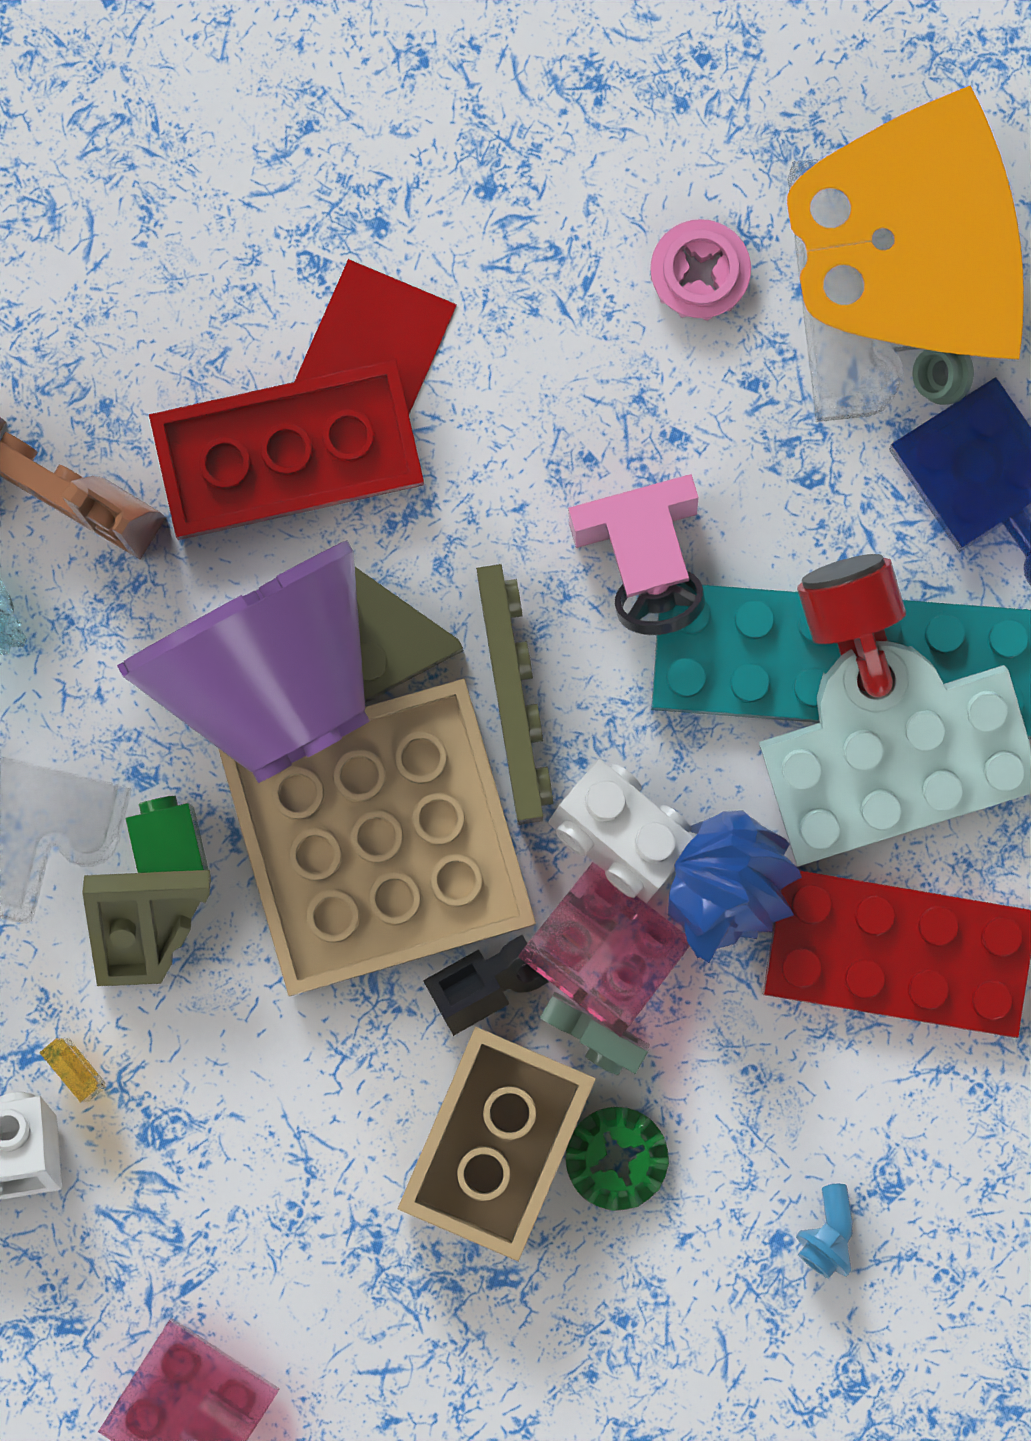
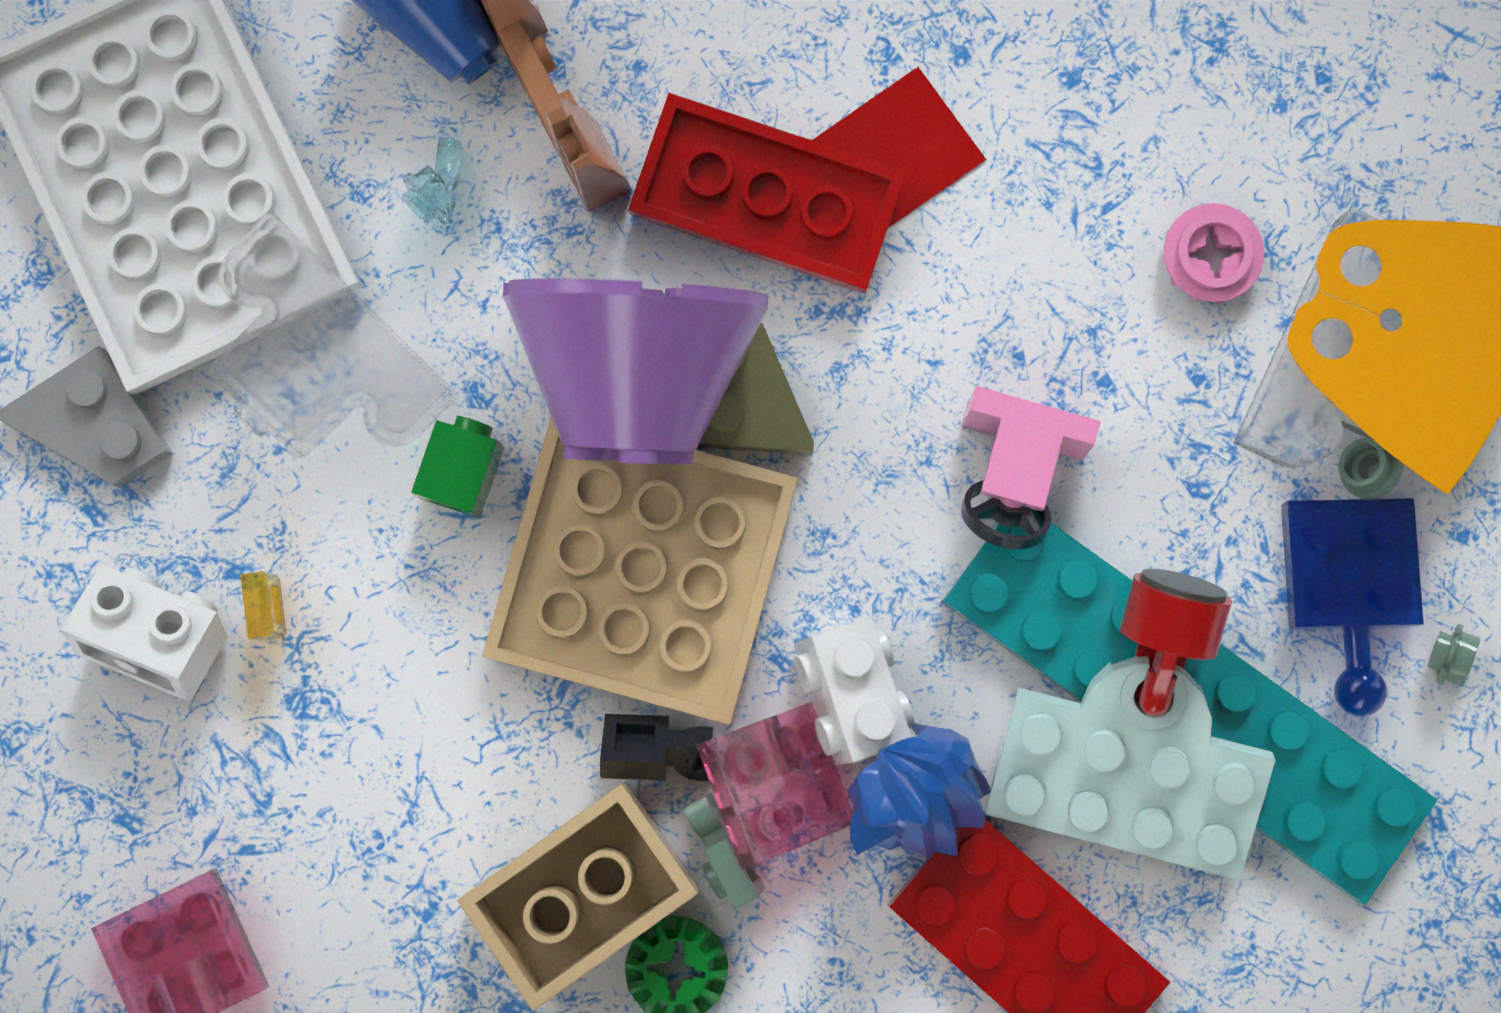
camera: 30 degrees right, 0 degrees up
(140, 922) = (393, 515): olive wing -> none
(510, 666) = (843, 491): olive plate -> none

